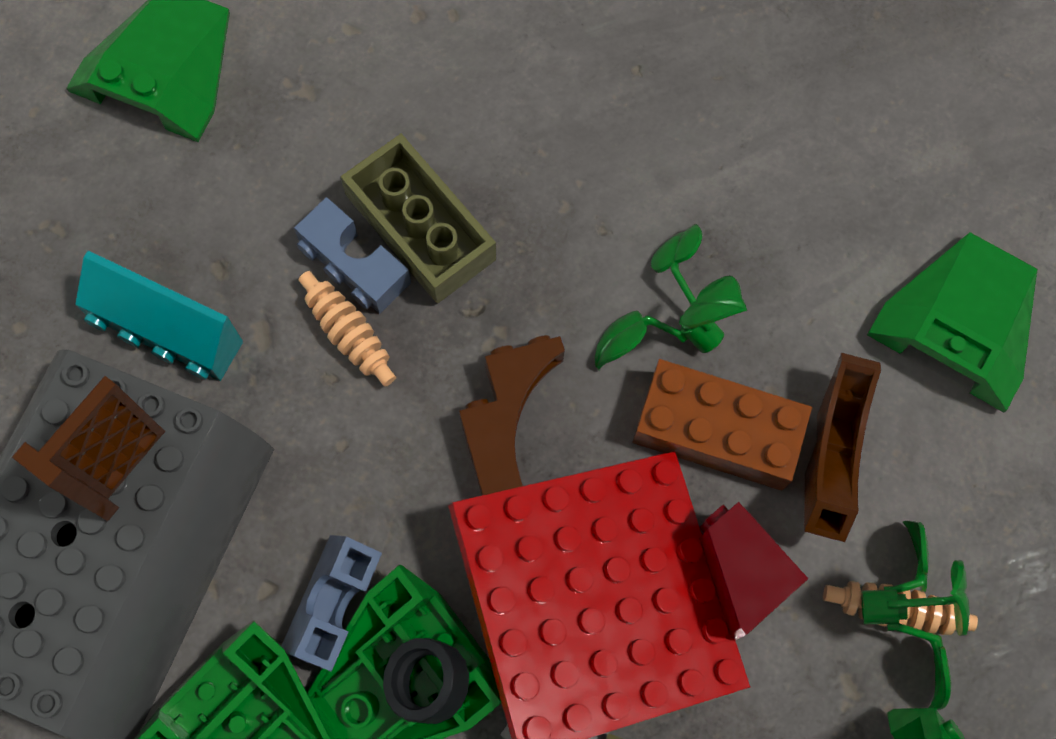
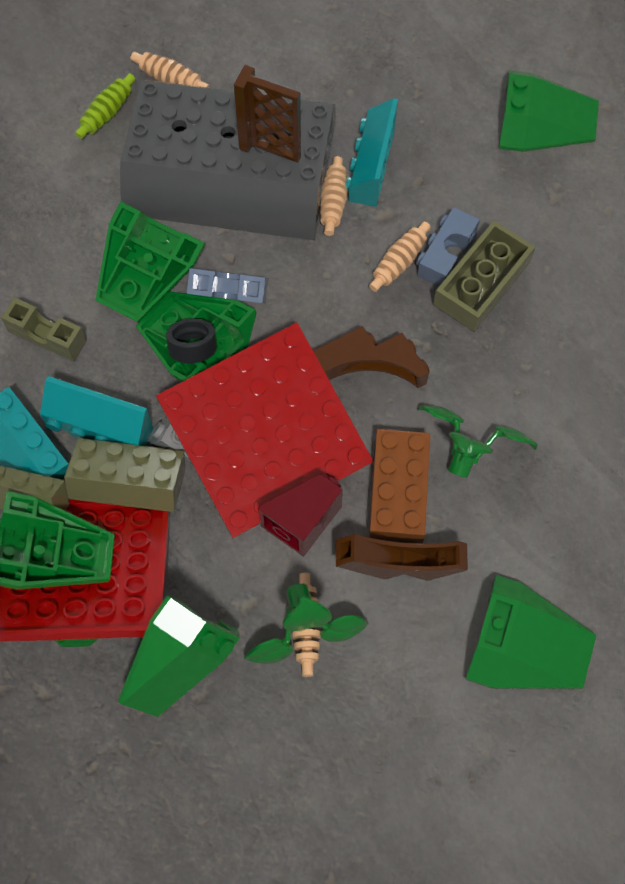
camera: 80 degrees right, 5 degrees down
(215, 395) = (333, 196): none -> light nougat piece

